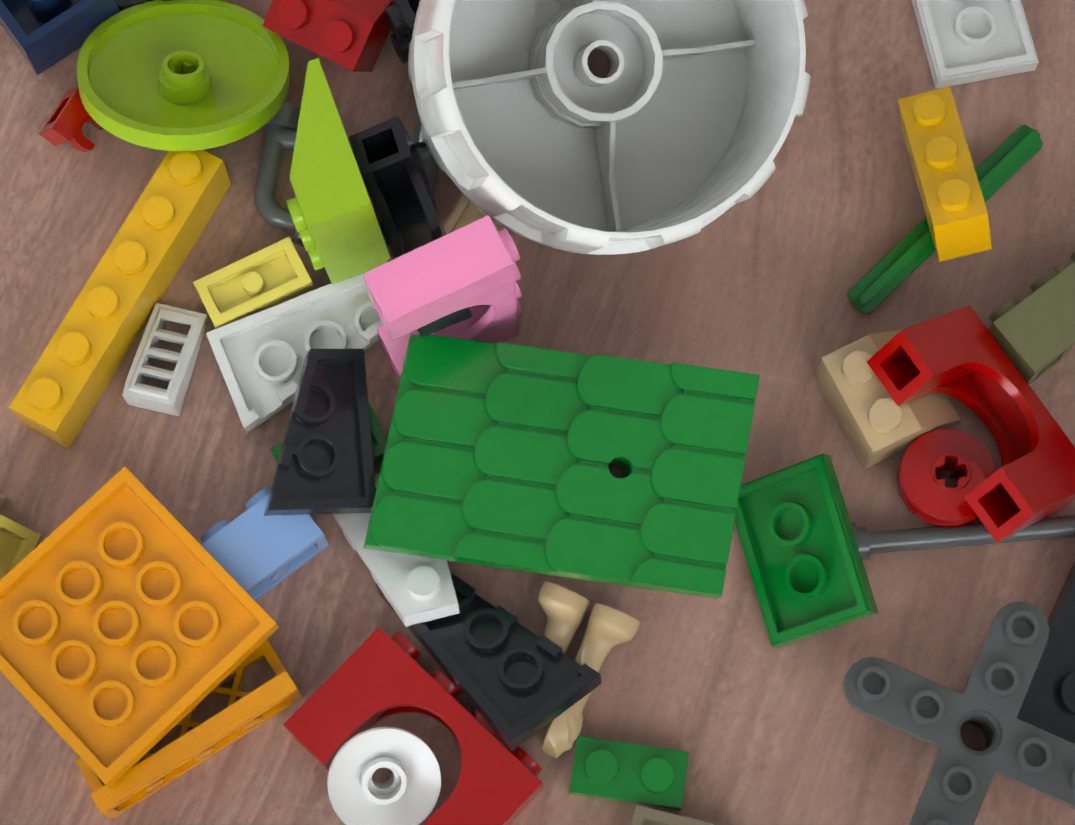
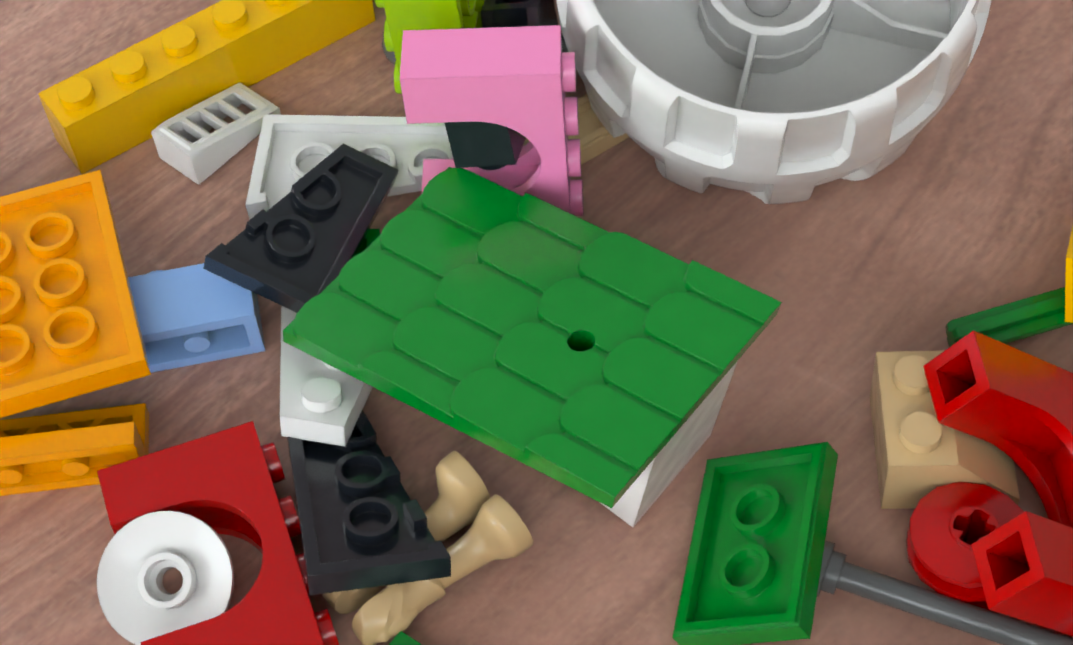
camera: 30 degrees right, 20 degrees down
(254, 283) = (337, 91): light yellow plate -> none

